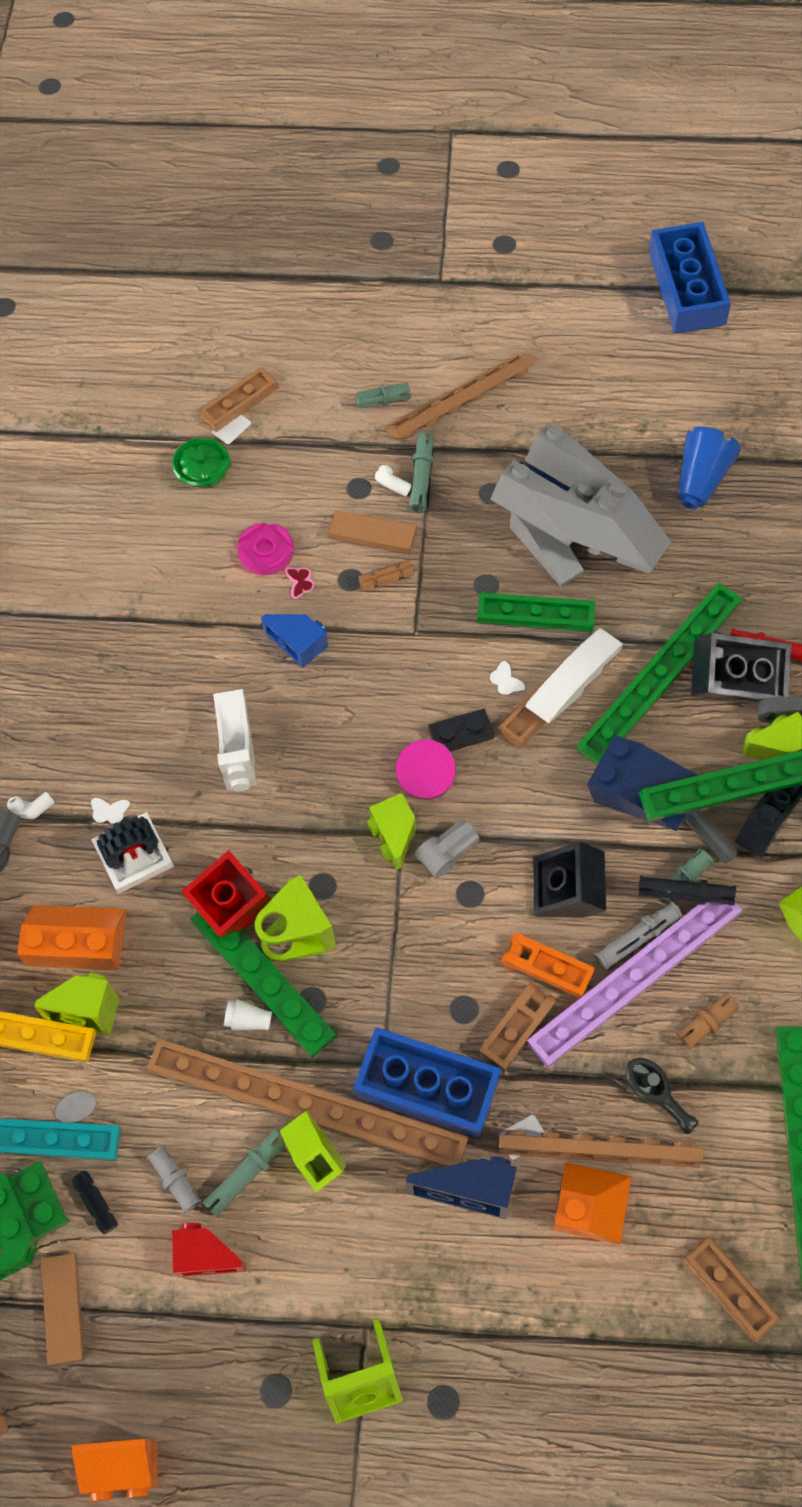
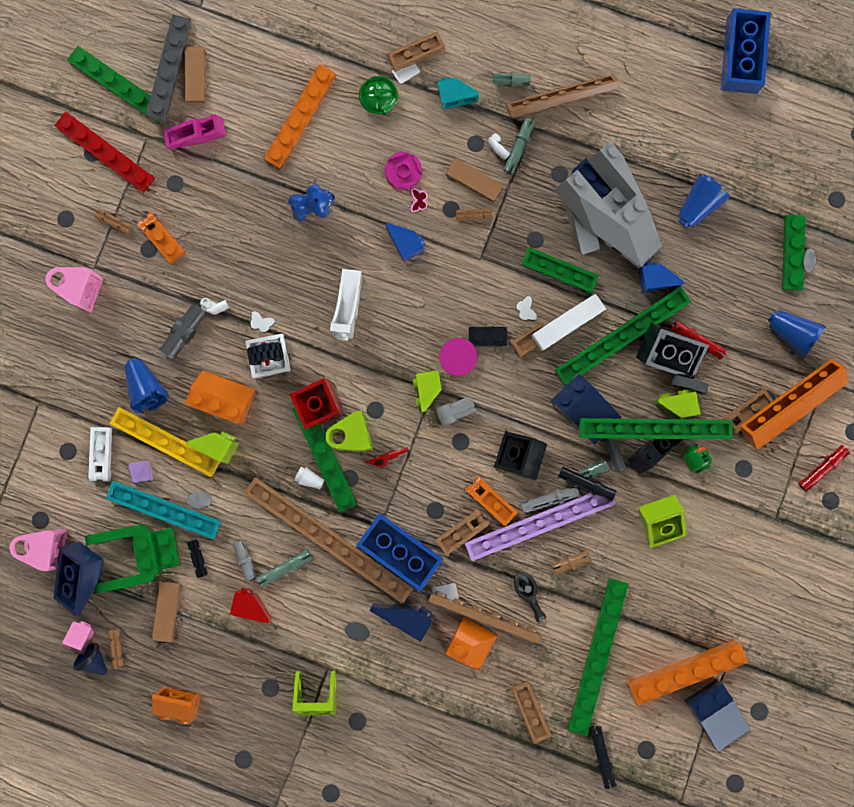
camera: 15 degrees right, 20 degrees up
(94, 522) = (300, 117): none -> orange plate
(146, 617) = (315, 201): none -> blue animal
(310, 431) = (455, 93): none -> teal slope
(312, 1151) = (324, 571): lime slope -> none
(359, 950) = (388, 456): none -> red hand
(396, 1244) = (357, 631): none -> dark grey sticker
(682, 581) = (657, 278): none -> blue slope

